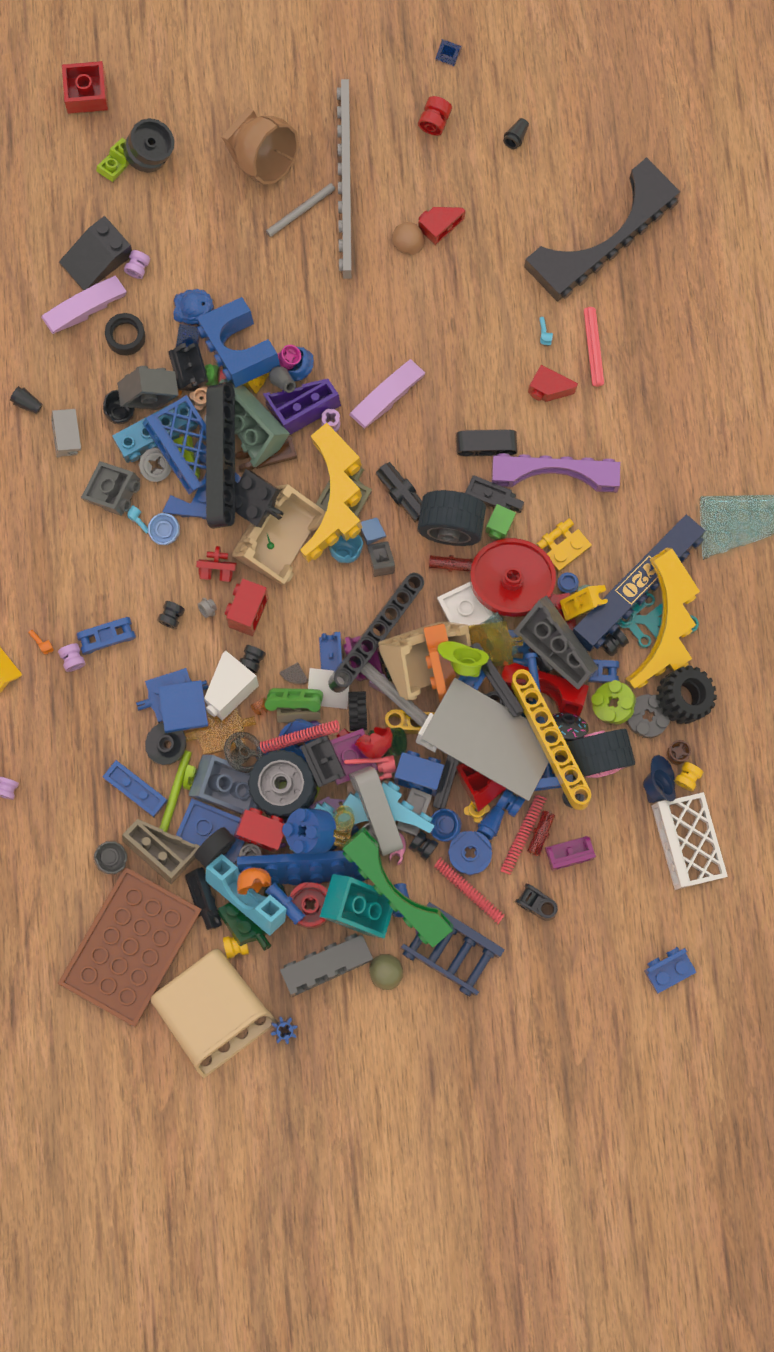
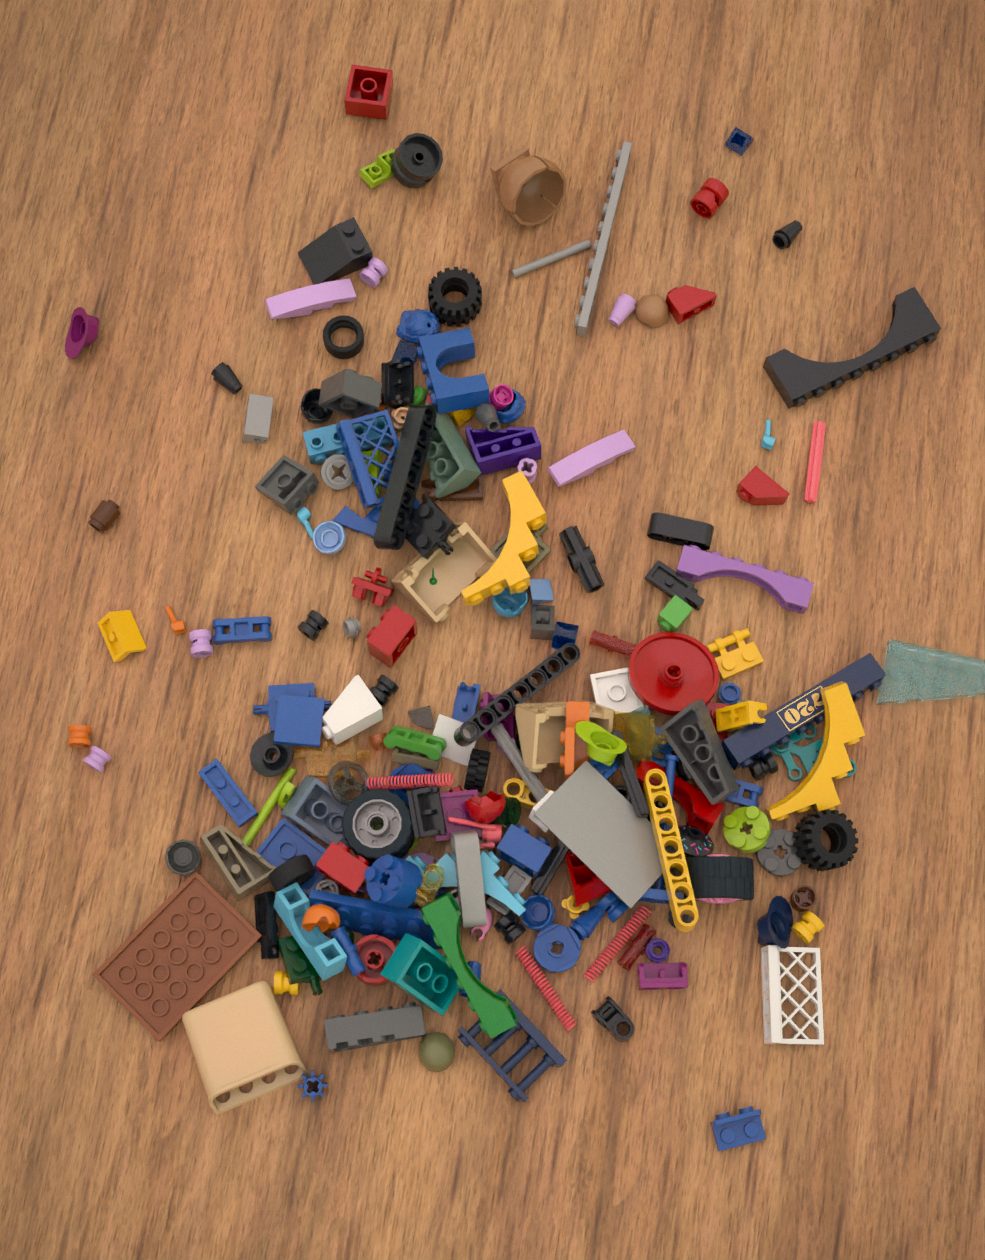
camera: 15 degrees right, 5 degrees down
(220, 254) = (457, 281): none -> black tyre
(380, 241) = (622, 309): none -> lavender cone
(404, 566) = (564, 634): none -> clear blue slope
(451, 518) = (624, 597): black wheel -> none
(560, 825) = (660, 944): none -> dark purple plate

